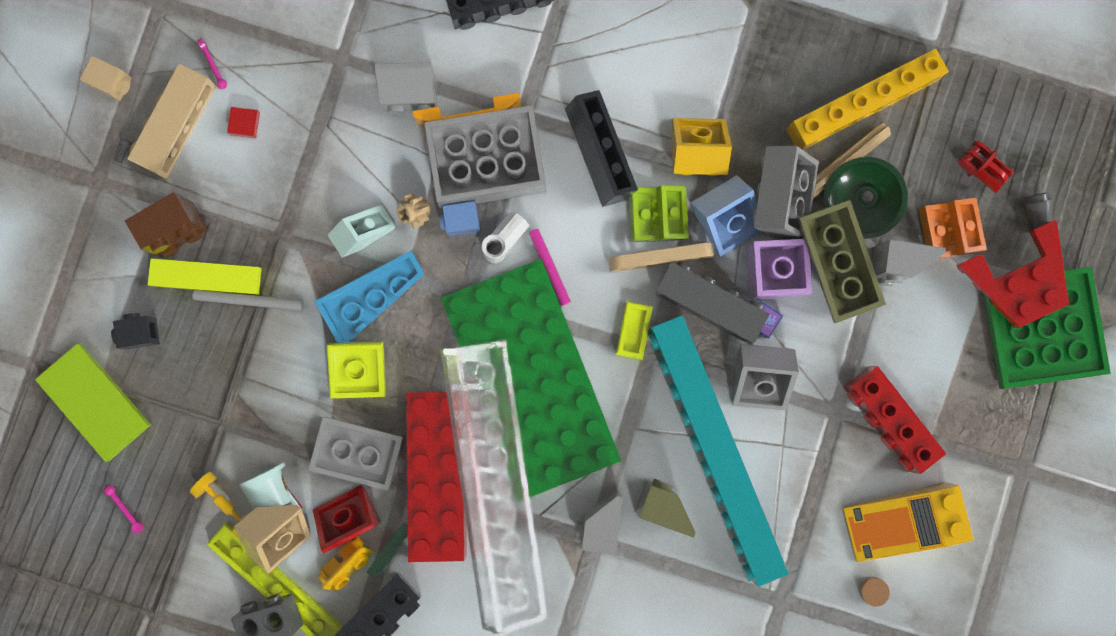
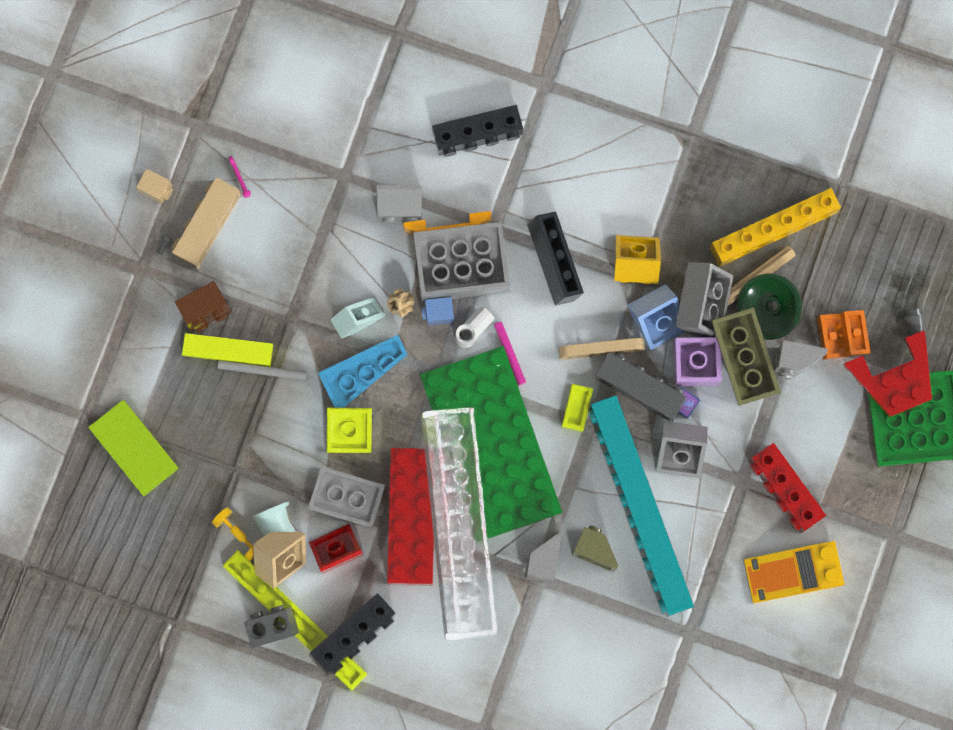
camera: 10 degrees right, 5 degrees down
(135, 331) = (171, 392): black brick -> none
(136, 527) = (164, 549): dark pink hinge -> none
(243, 122) = (263, 225): red tile -> none
(336, 574) = (328, 594): yellow hinge -> none
(388, 551) = (371, 575): clear green tile -> none
(658, 214) = (601, 313): lime slope -> none
(874, 591) = (766, 628): medium nougat tile -> none
(988, 169) = (875, 288): red arm -> none

